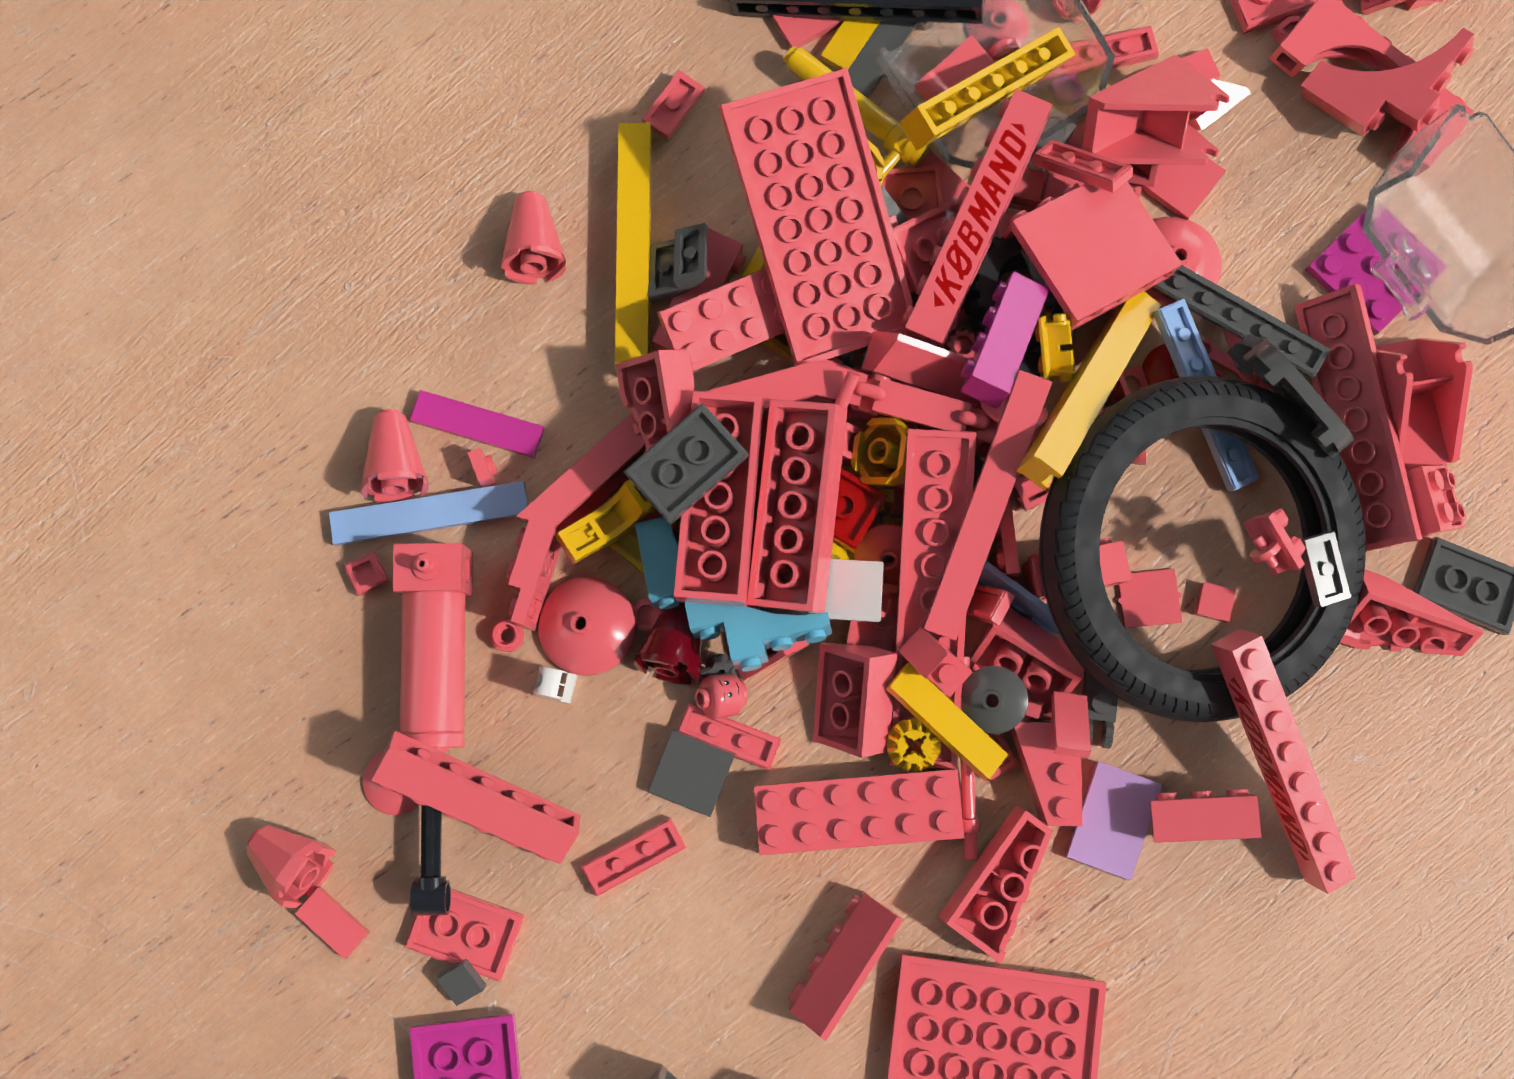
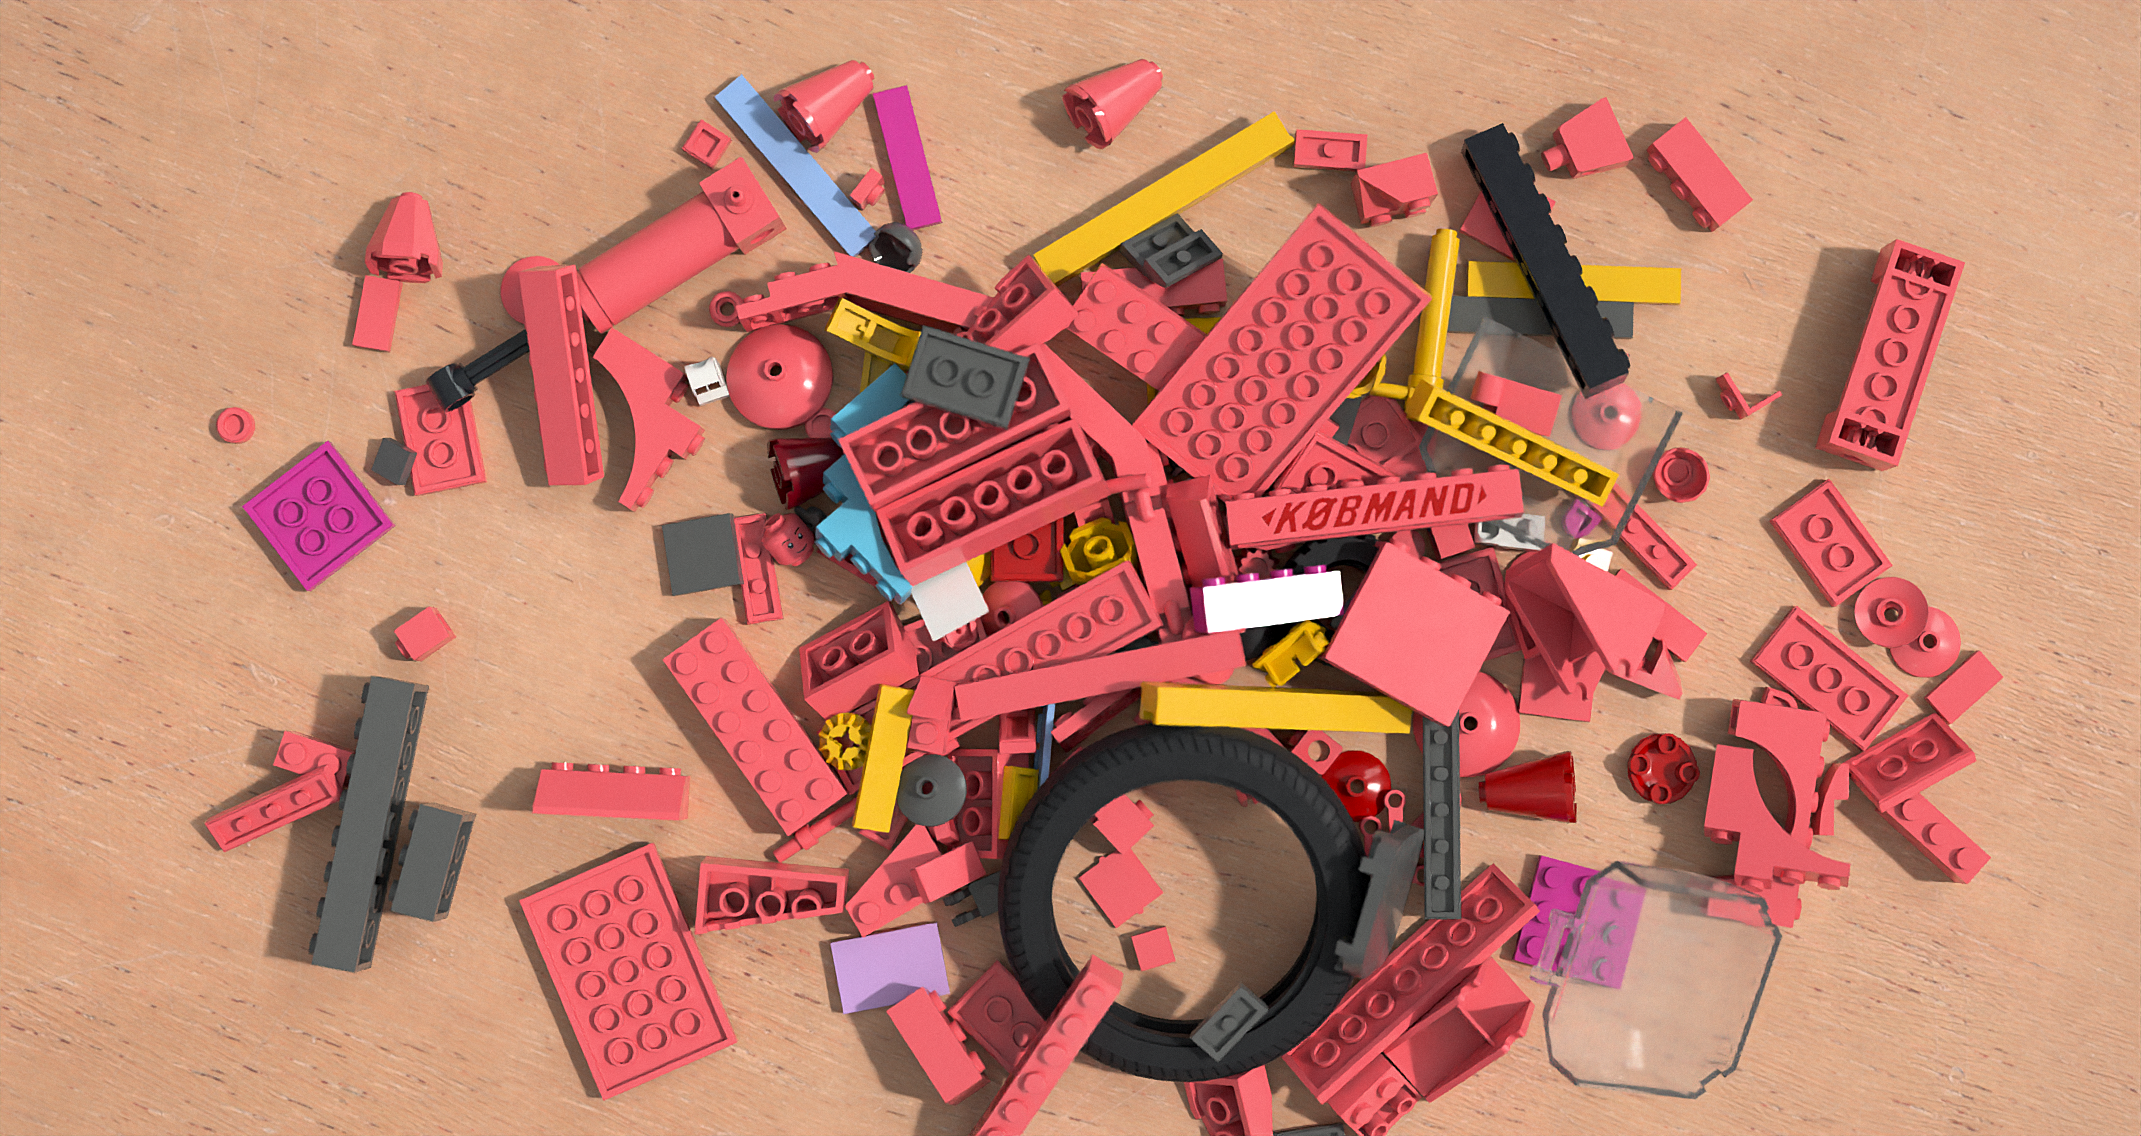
camera: 55 degrees right, 5 degrees up
(531, 734) = (659, 430): none -> coral arch
(541, 470) = (896, 247): none -> dark grey hair
(618, 1044) = (423, 634): none -> coral brick
(633, 857) = (596, 548): coral tile -> none
(734, 66) = (1394, 189): none -> coral slope
(1003, 48) = (1570, 436): coral tile -> none
(1042, 635) = (1017, 790): none -> yellow tile
(1082, 166) = (1490, 577): coral tile -> none
(1192, 360) = (1363, 803): light blue tile -> none
(1205, 754) = (998, 1016): none -> coral tile
(1258, 236) = (1534, 789): none -> red cone
(1273, 542) = (1218, 956): coral hips -> none
(1292, 139) = (1662, 768): none -> red dish
(1381, 21) = (1833, 786): none -> coral slope

